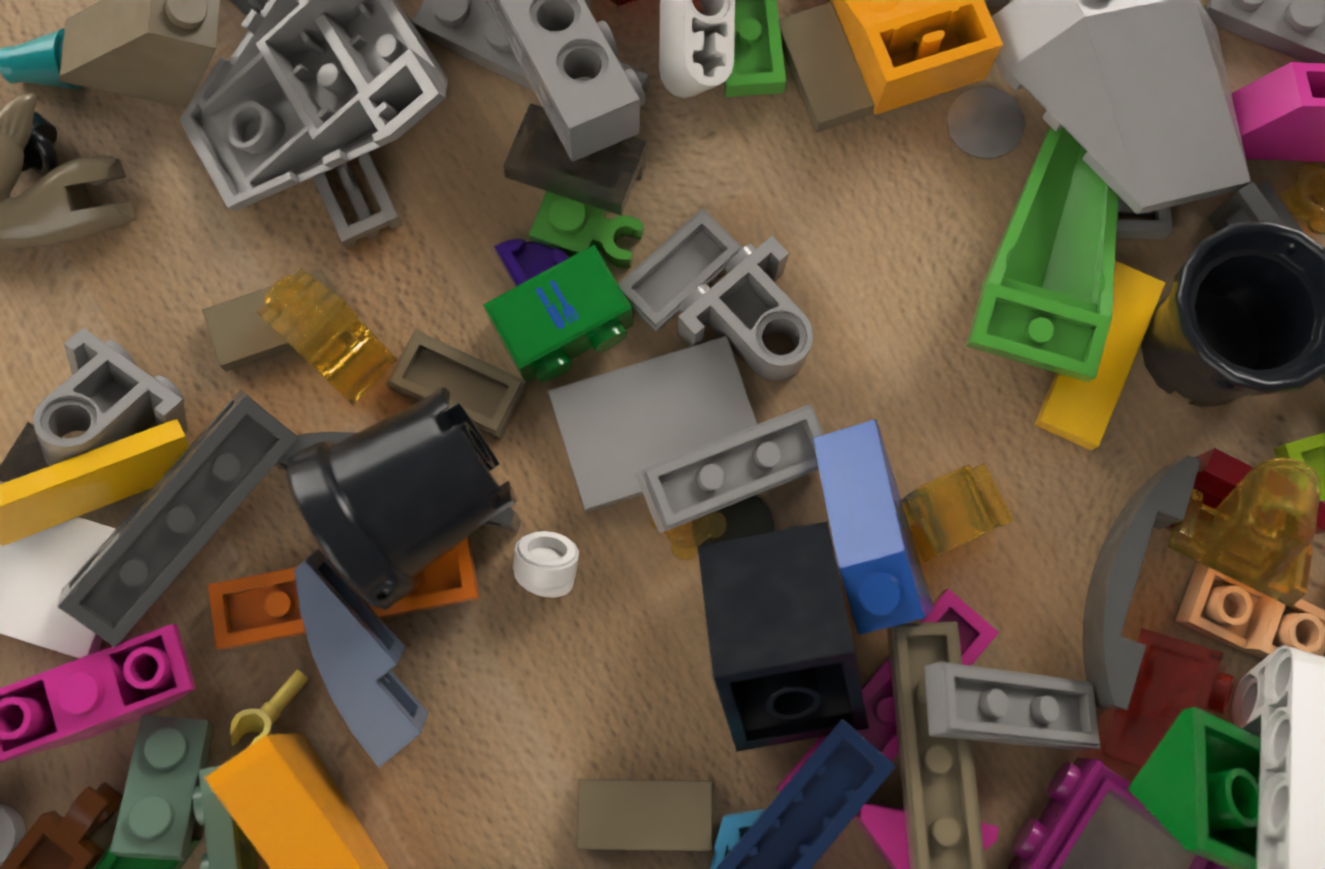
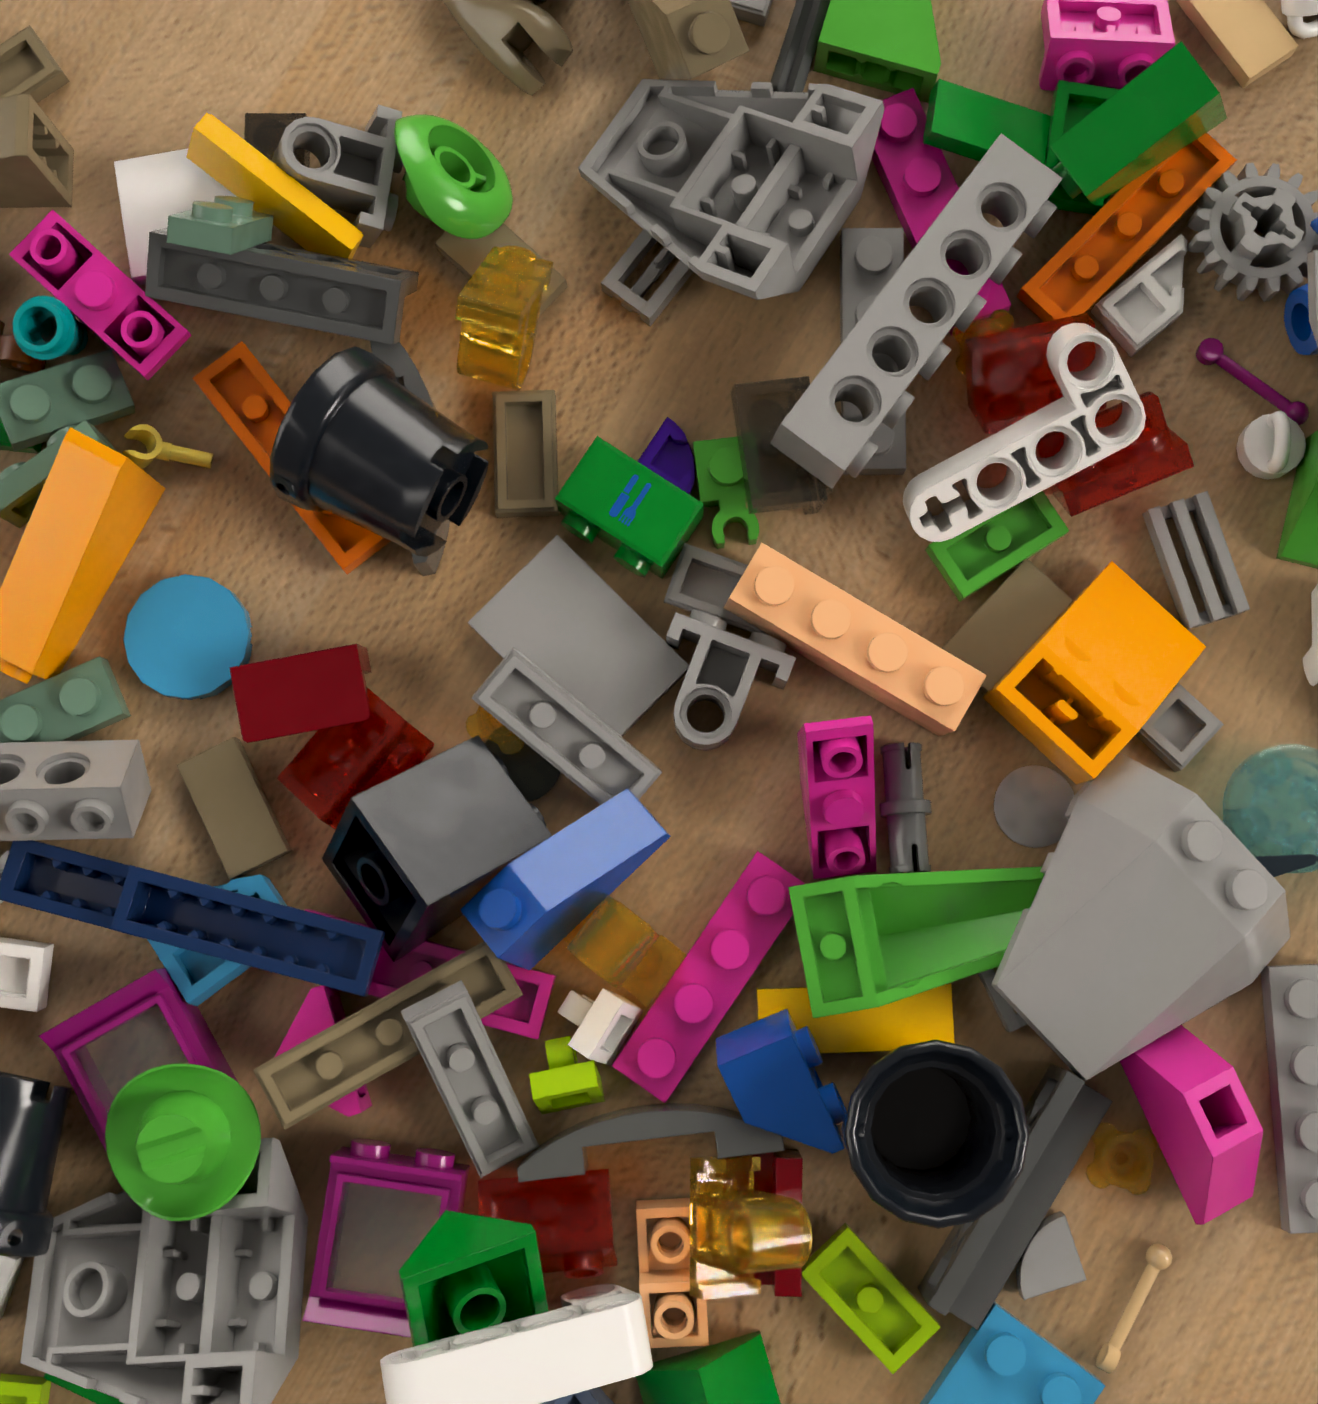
camera: 70 degrees right, 5 degrees up
(74, 770) = (48, 329): none -> teal cone
(90, 538) = (220, 226): none -> sand green plate
(170, 317) = (452, 176): none -> bright green hat
(356, 660) = (227, 505): sand blue slope -> none
(459, 779) = (187, 637): none -> dark azure tile
(546, 563) = (404, 612): white tile -> none
(575, 691) = (302, 693): none -> dark red panel
(659, 675) = (353, 759): none -> clear red bracket
(778, 185) = (855, 642): none -> light nougat brick
(905, 263) = (839, 795): none -> dark pink slope
(941, 220) = (905, 808): none -> dark grey pin
(997, 434) = (709, 978): none -> dark pink plate
(1009, 568) = (601, 1023): none -> white tile
(1047, 625) = (567, 1081): none -> lime tile
(1135, 437) = (776, 1082): none -> blue slope

